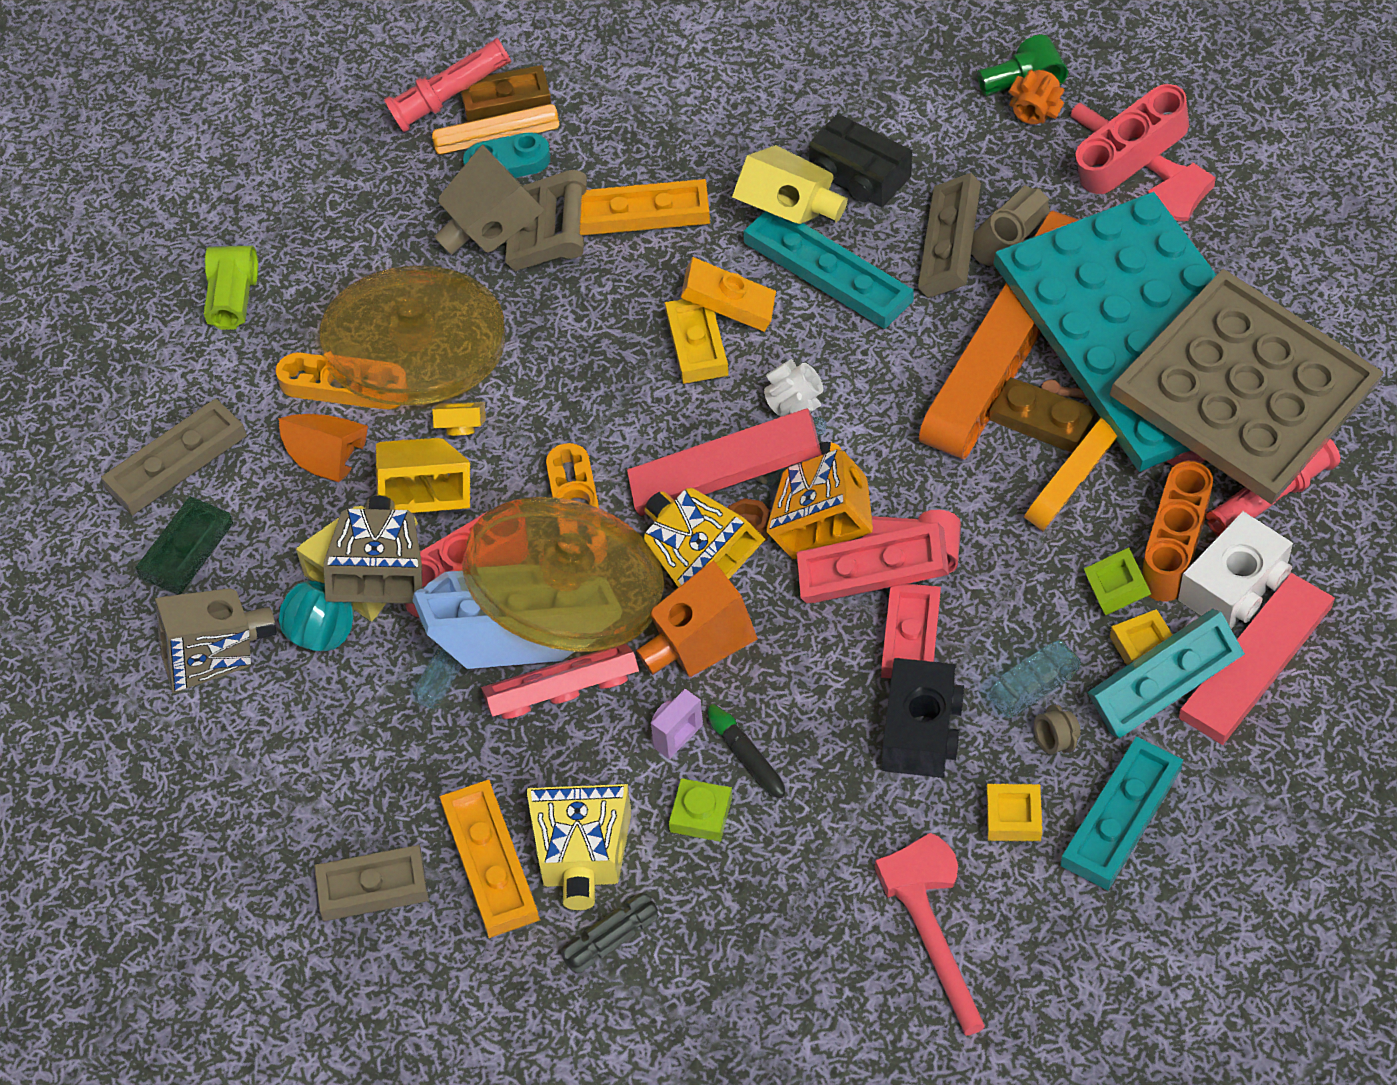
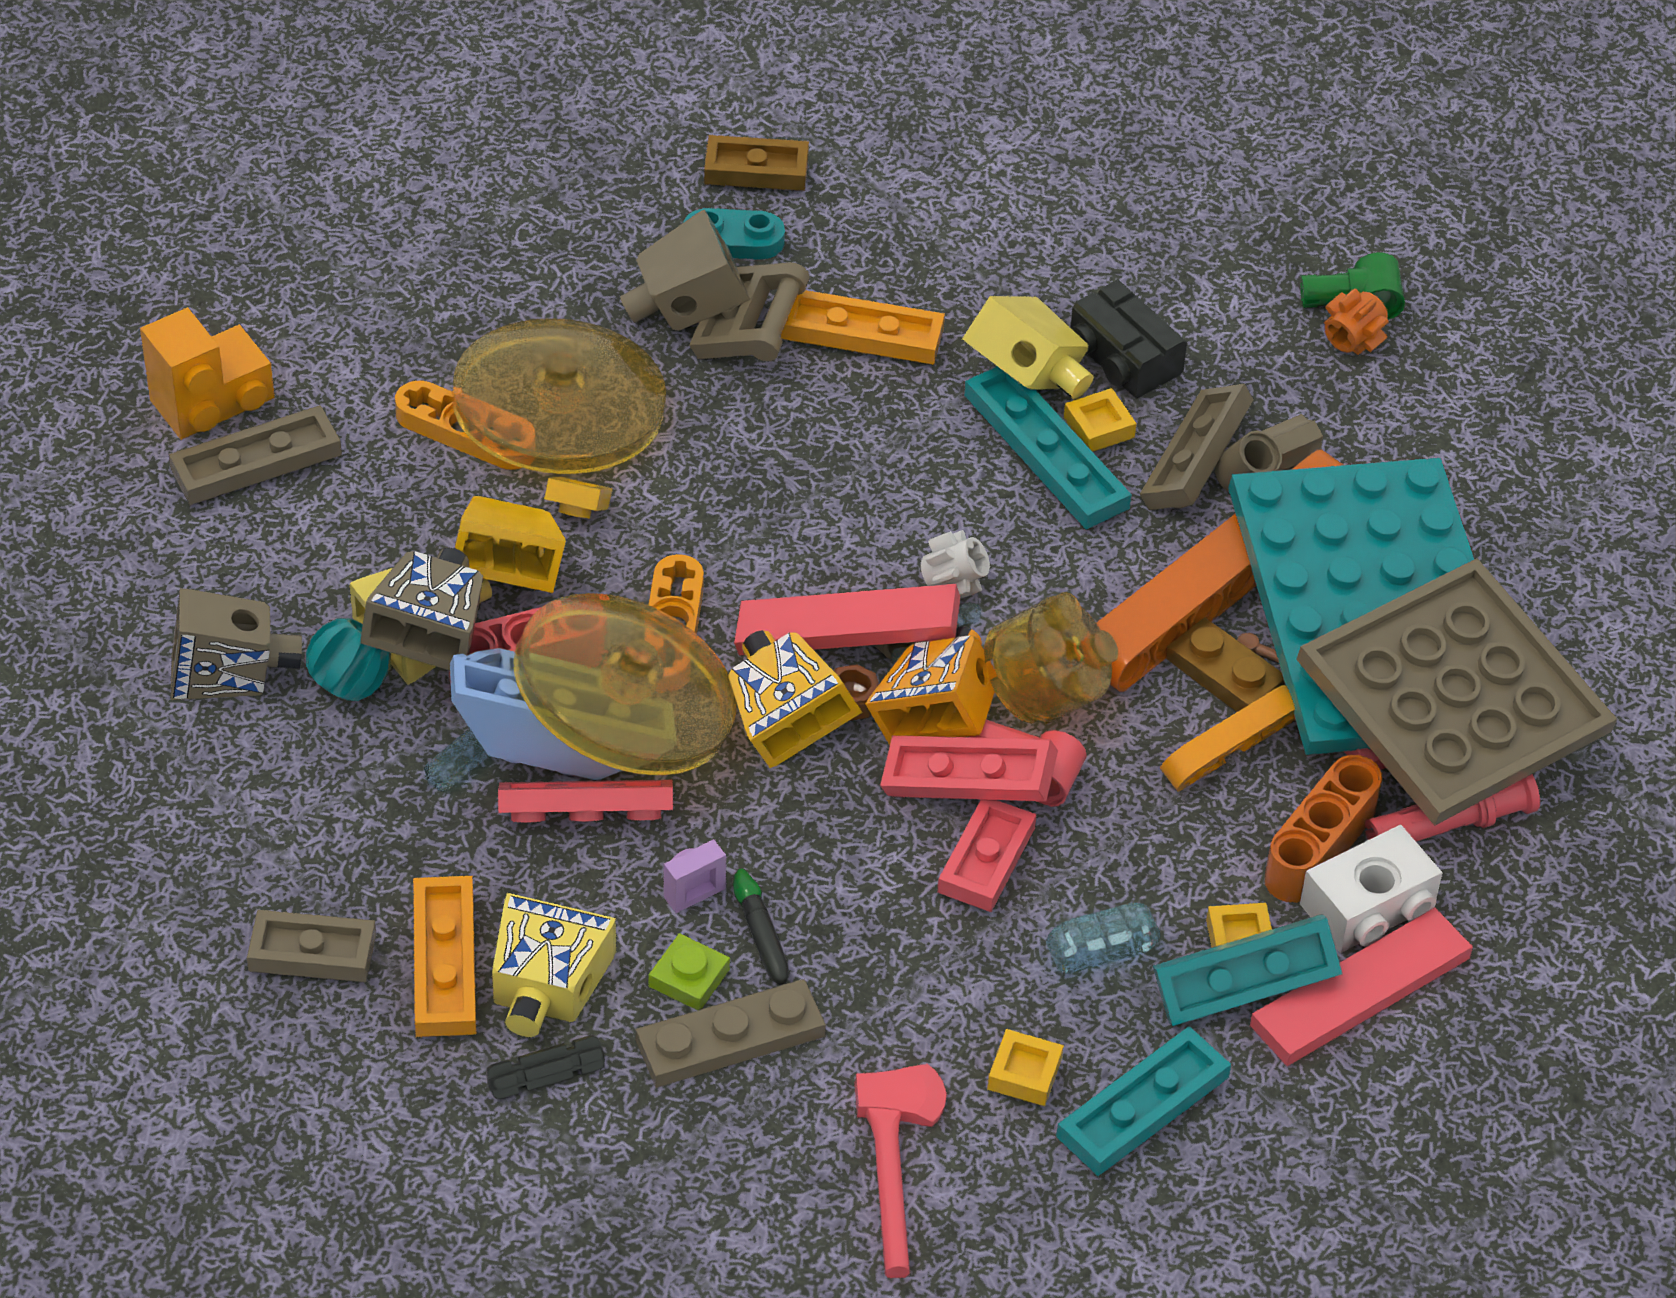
camera: 10 degrees right, 5 degrees down
(106, 401) = (202, 377): none -> light orange brick
(184, 545) = (234, 549): clear green plate -> none
(229, 278) = (380, 281): lime piece -> none
(322, 442) = (419, 483): orange brick -> none
(431, 93) = (672, 140): coral pin -> none
(464, 135) = (691, 196): light orange axle -> none
(696, 341) = (869, 483): yellow plate -> none
(698, 624) = (754, 779): orange torso -> none
(728, 294) = (922, 444): light orange plate -> none
(754, 854) = (730, 1033): none -> dark tan plate
(863, 233) = (1100, 420): none -> yellow plate
(906, 451) = (1050, 659): none -> clear yellow brick
(917, 691) = (969, 915): black brick -> none
(1057, 730) = (1106, 997): dark tan plate -> none
(1117, 581) = (1235, 863): lime plate -> none
(1141, 120) = (1444, 396): coral beam -> none
(1182, 185) = (1489, 463): coral piece -> none

